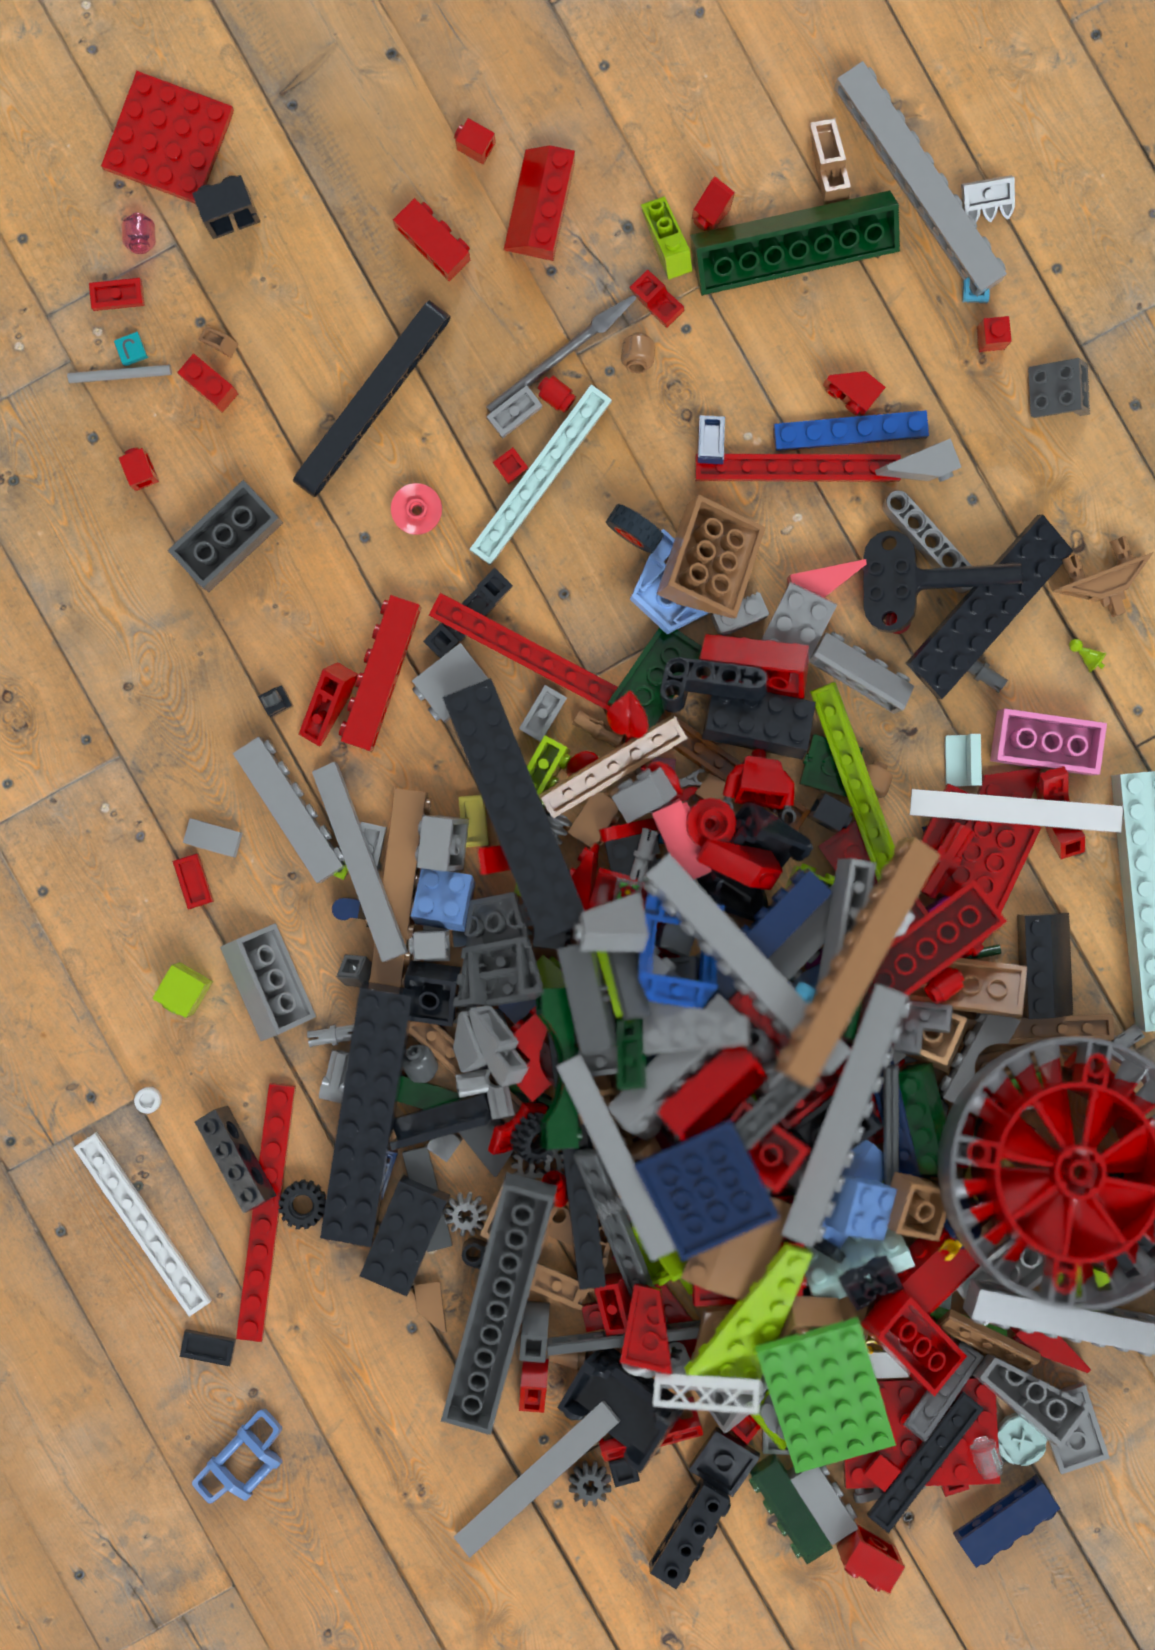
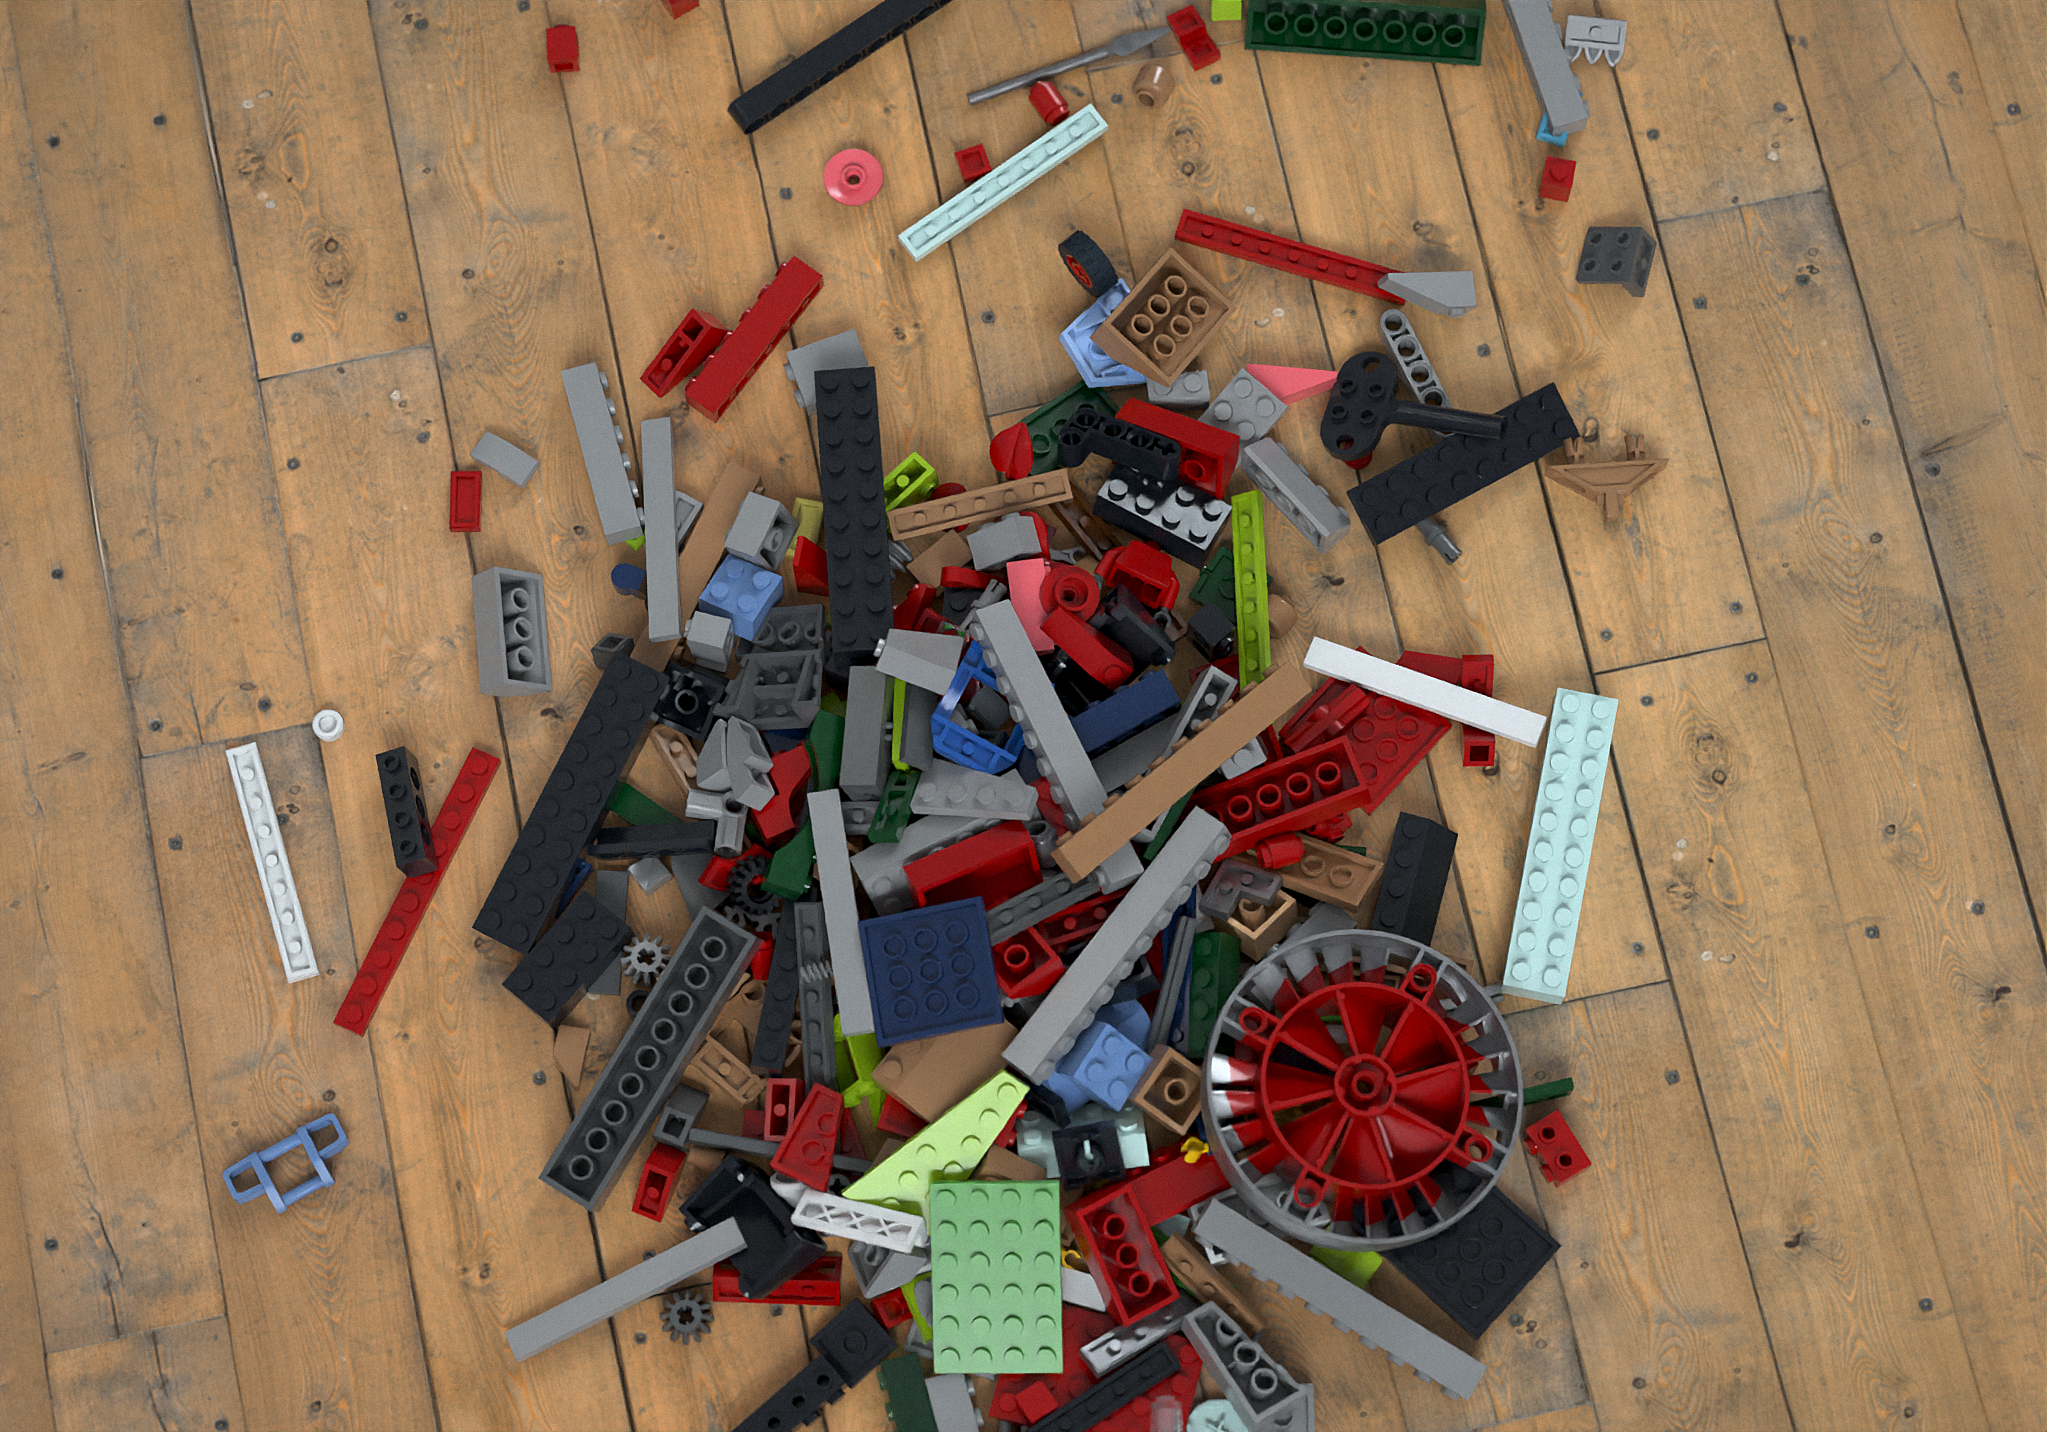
camera: 25 degrees right, 15 degrees down
(182, 990) = (412, 610): lime head -> none
(207, 1347) = (296, 1025): black tile -> none
(225, 536) = (633, 143): dark grey brick -> none
(275, 701) = (626, 334): black piece -> none
(298, 1219) = (450, 880): black tyre -> none
(332, 1035) = (556, 714): light grey pin -> none
(333, 1082) = (543, 766): light grey piece -> none
(420, 1063) = (652, 772): dark grey head -> none
(482, 600) = (877, 304): black slope -> none
(514, 411) = (996, 108): light grey plate -> none
(522, 650) = (918, 357): red plate -> none
(543, 713) = (922, 433): light grey plate -> none
(597, 729) = (977, 469): medium nougat pin -> none
(622, 1473) = (732, 1319): black tile -> none
(711, 439) = (1205, 199): tile -> none
(851, 430) = (1367, 236): blue plate -> none
(855, 389) = (1384, 192): red slope -> none
(963, 760) = (1385, 626): light aqua panel -> none
(1048, 742) = (1479, 624): bright pink brick -> none
(1051, 1348) = (1284, 1320): red slope -> none
(1090, 657) = (1567, 558): lime piece -> none

